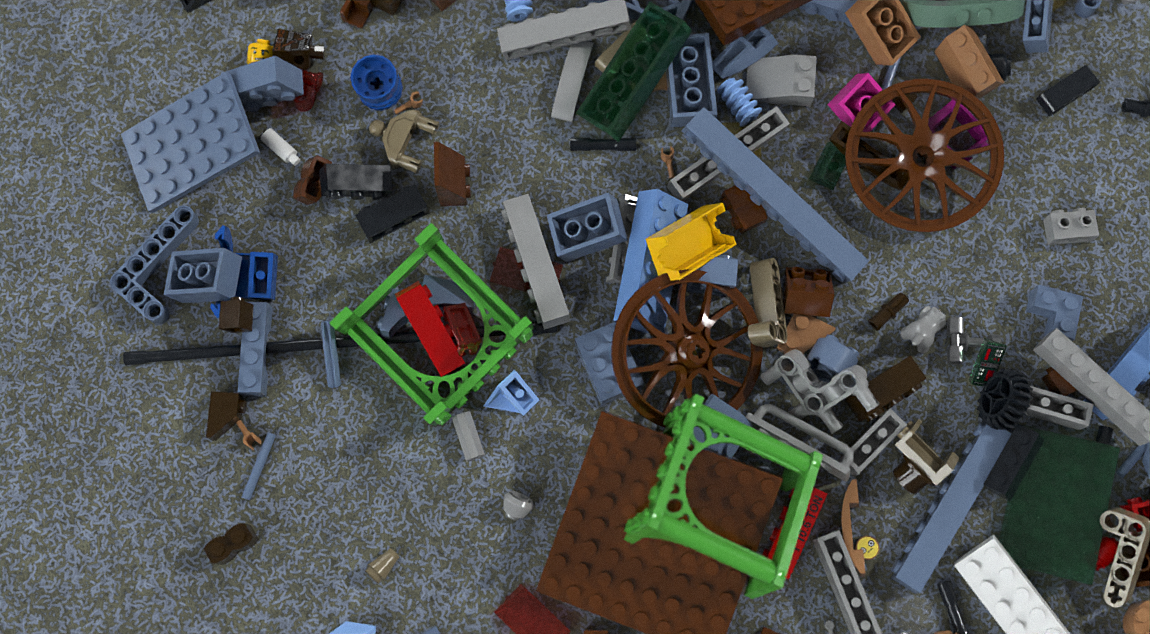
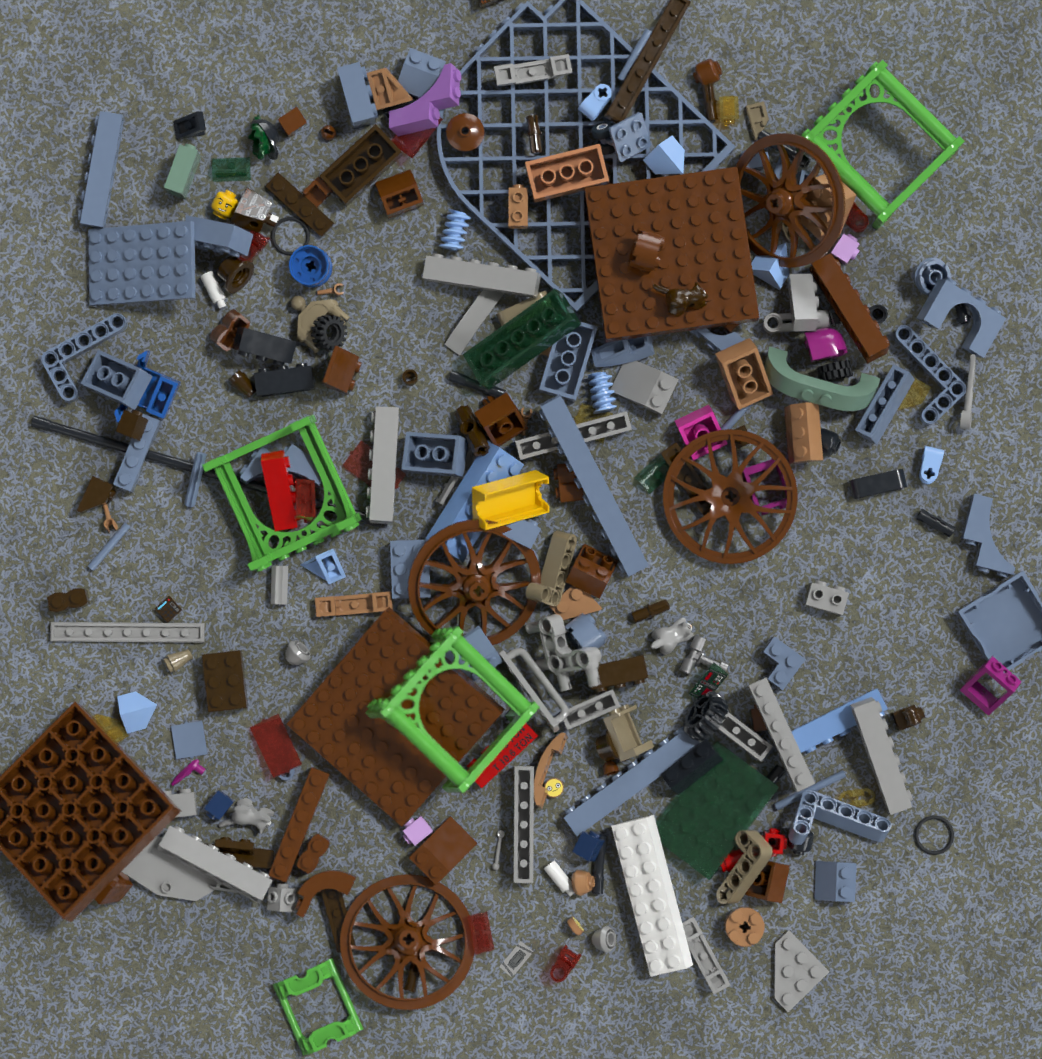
camera: 20 degrees right, 10 degrees up
(115, 67) = (102, 169): none -> sand blue brick
(202, 35) = (182, 171): none -> sand green brick
(256, 22) = (231, 169): none -> clear green slope
(298, 119) = (235, 273): none -> dark brown piece
(312, 556) = (127, 632): none -> light grey tile
(332, 51) = (290, 219): none -> black piece
(342, 30) = (299, 204): none -> dark brown plate
(347, 233) = (242, 383): none -> dark brown cone
(351, 511) = (168, 609): none -> dark brown tile
(414, 147) = (320, 332): none -> black tyre
(445, 568) = (225, 681): none -> dark brown brick
(525, 160) = (408, 374): none -> dark brown hinge
(560, 426) = (353, 604): none -> medium nougat slope
(618, 187) = (472, 430): none -> dark brown piece
(644, 164) = (500, 419): none -> reddish brown brick
(920, 501) = (610, 768): none -> reddish brown hinge
(937, 598) = (588, 845): none -> dark blue brick
(1112, 52) = (931, 461): none -> light blue piece

